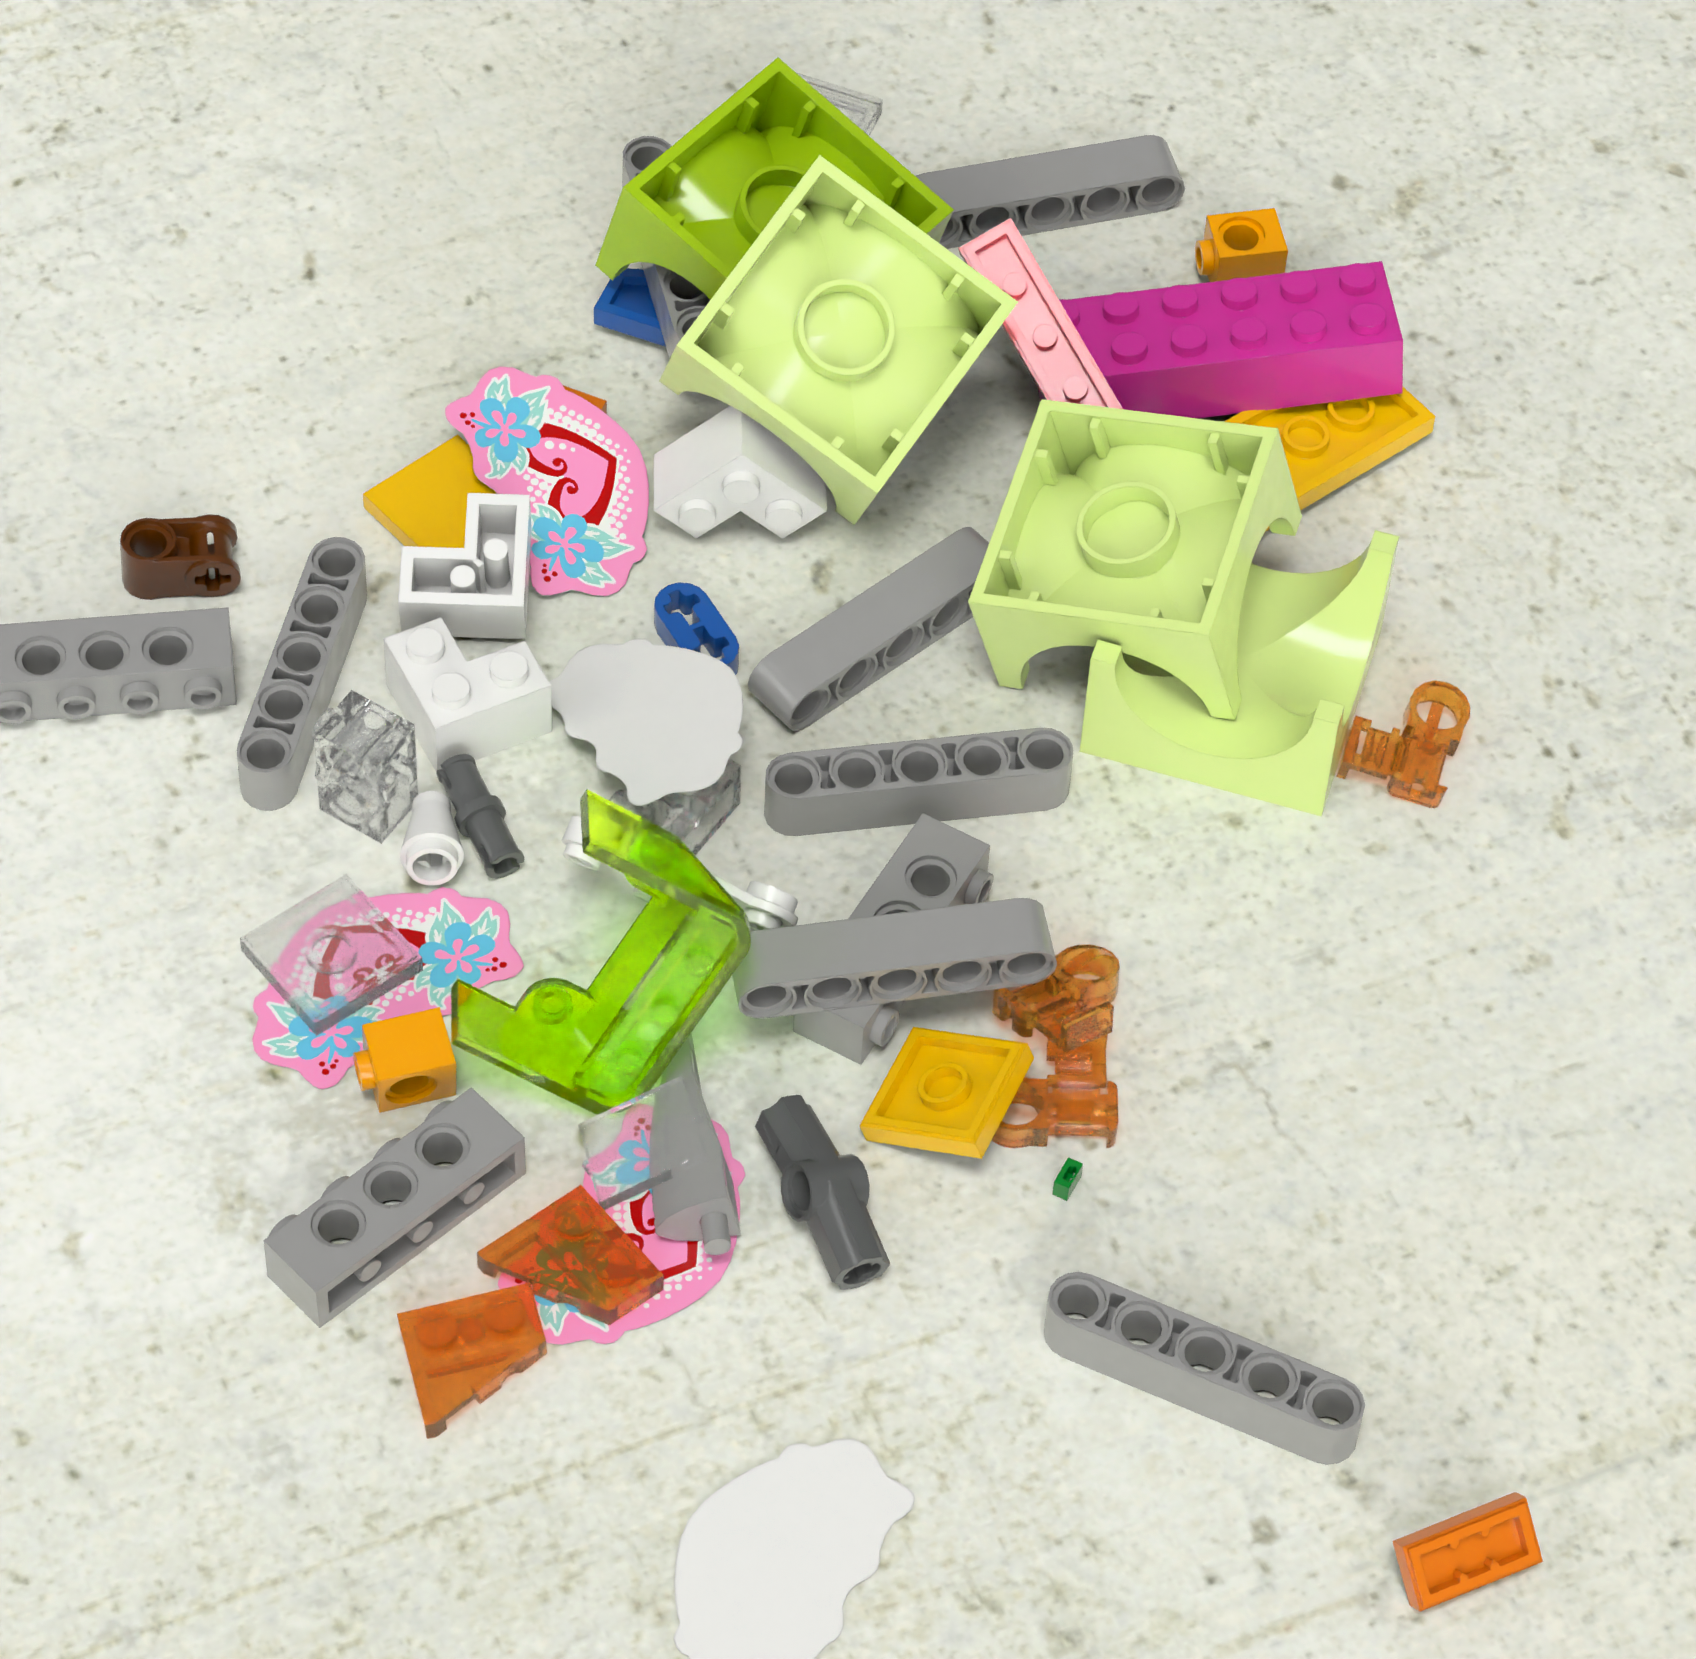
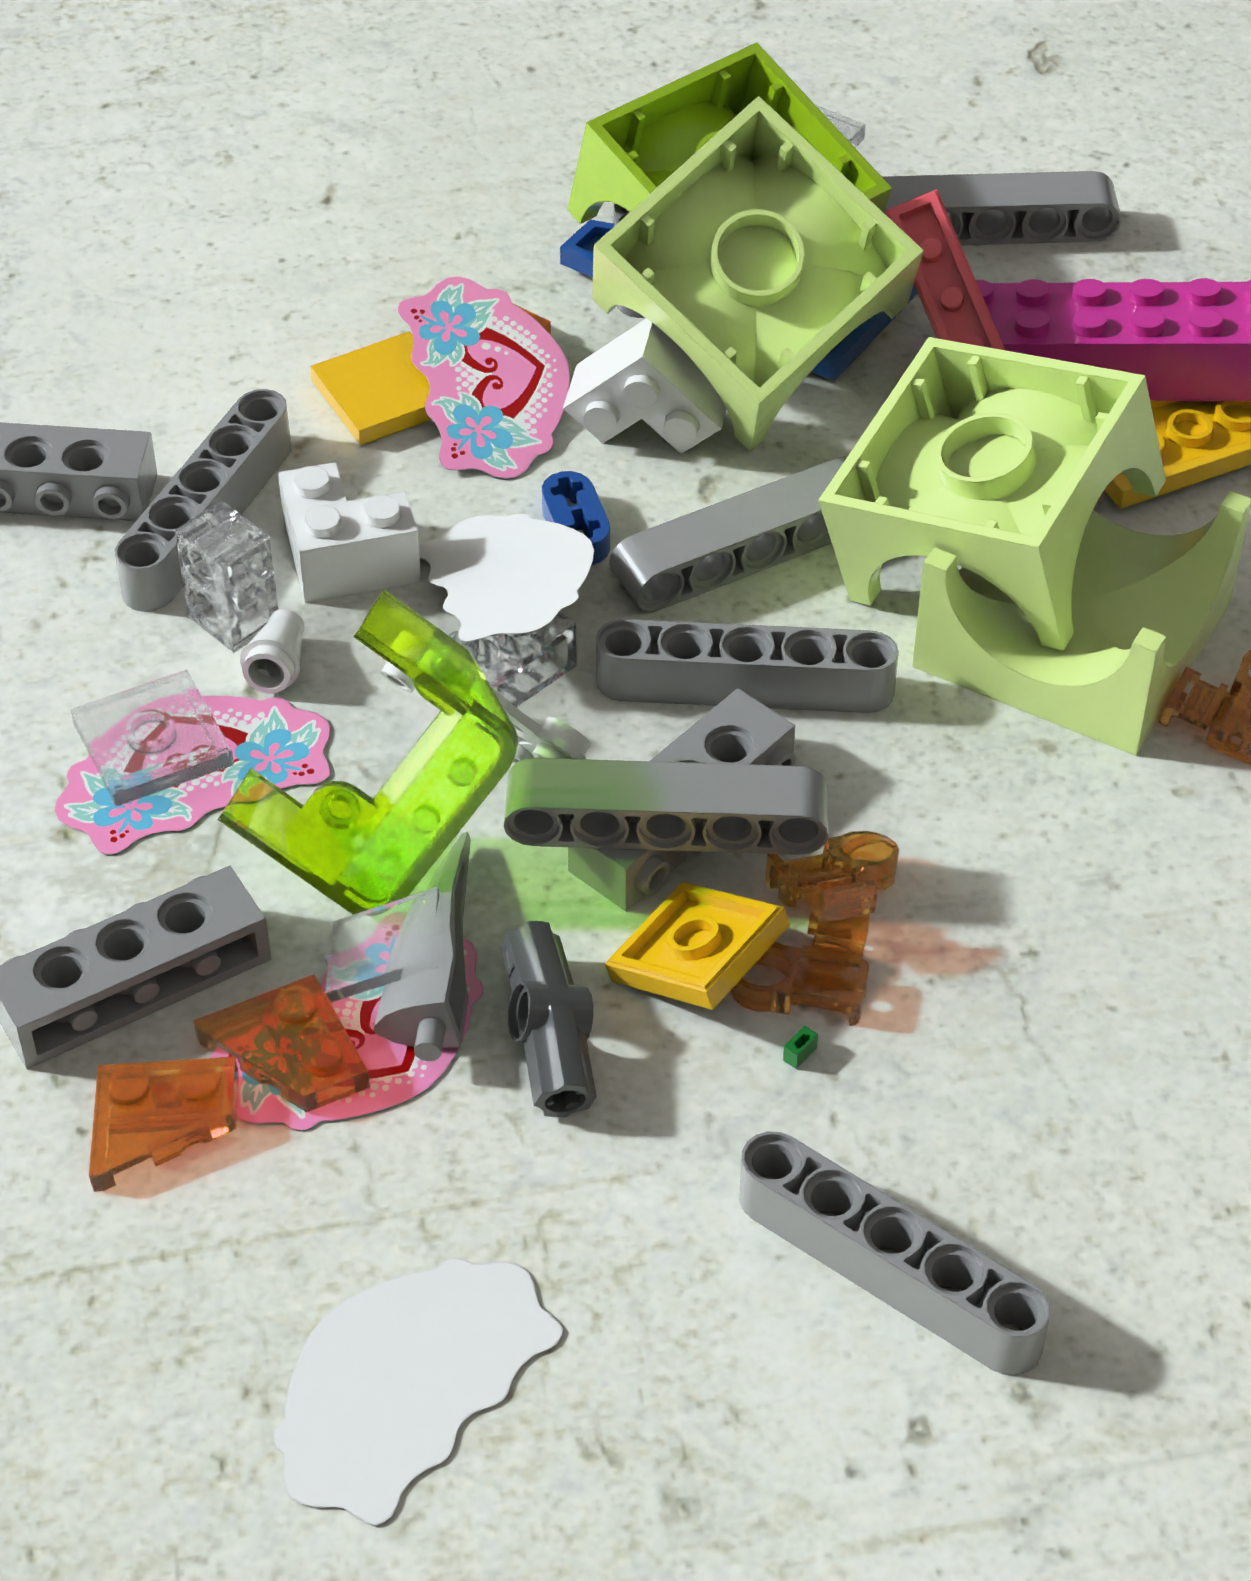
camera: 15 degrees right, 5 degrees down
(174, 557) = (125, 395): reddish brown piece -> none
(406, 1060) = (182, 835): light orange brick -> none
(475, 587) = (383, 444): white brick -> none
(480, 816) = (327, 639): dark grey pin -> none
(1241, 245) = (1163, 260): light orange brick -> none
(1467, 1551) = (1134, 1491): orange plate -> none

